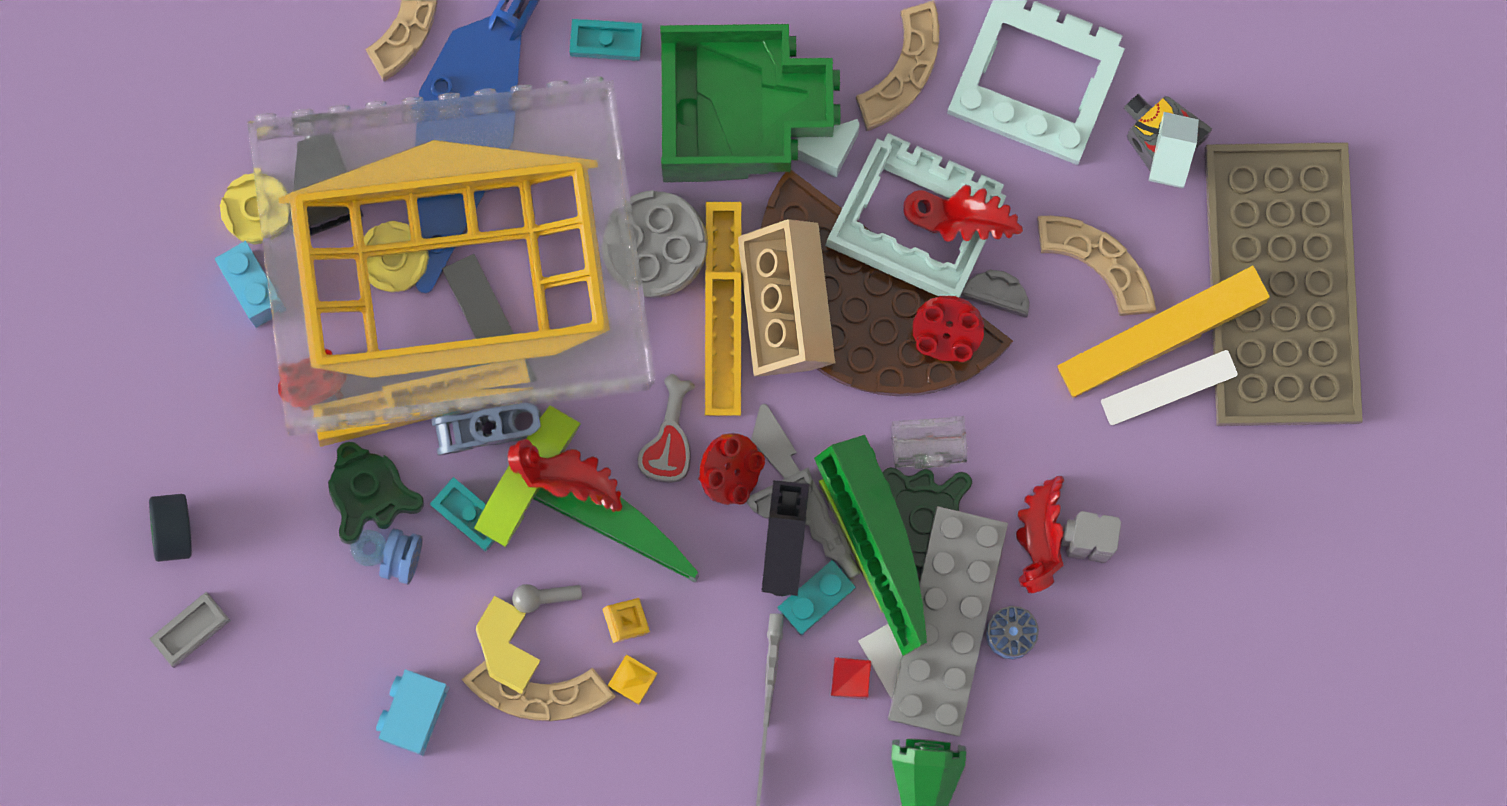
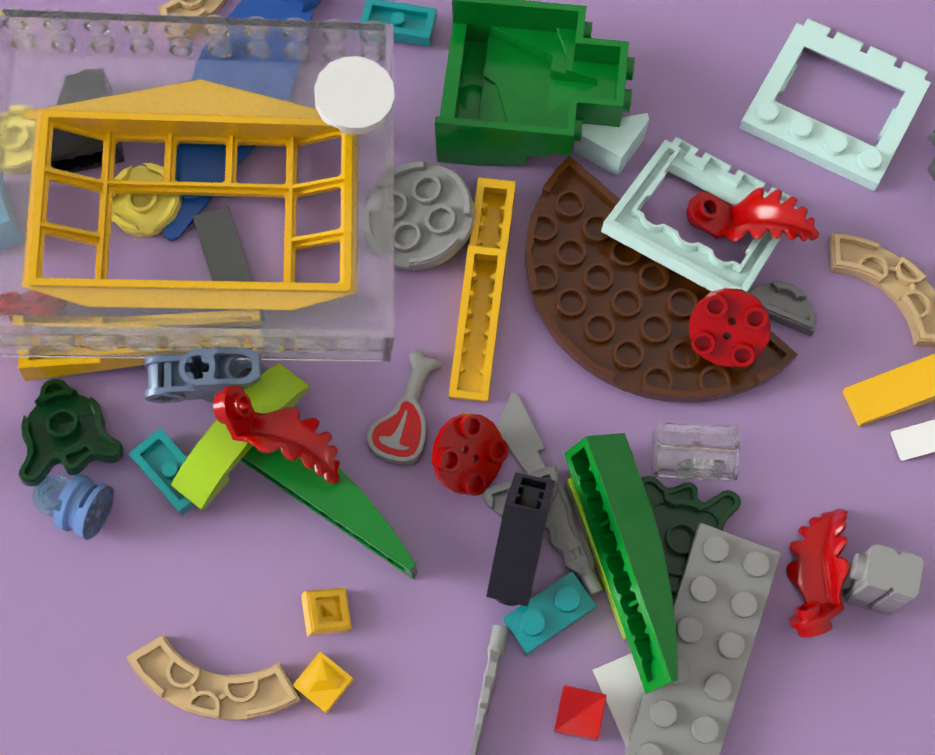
camera: 10 degrees right, 10 degrees down
(412, 712) = (60, 689): medium azure brick -> none
(503, 660) = (177, 640): light yellow tile -> none
(528, 598) = (219, 572): light grey bar -> none
(589, 159) = (354, 95): none -> white tile
(786, 298) = (552, 279): tan slope -> none
(911, 71) = (704, 86): tan tile -> none
(1012, 632) = (776, 682): wheel -> none

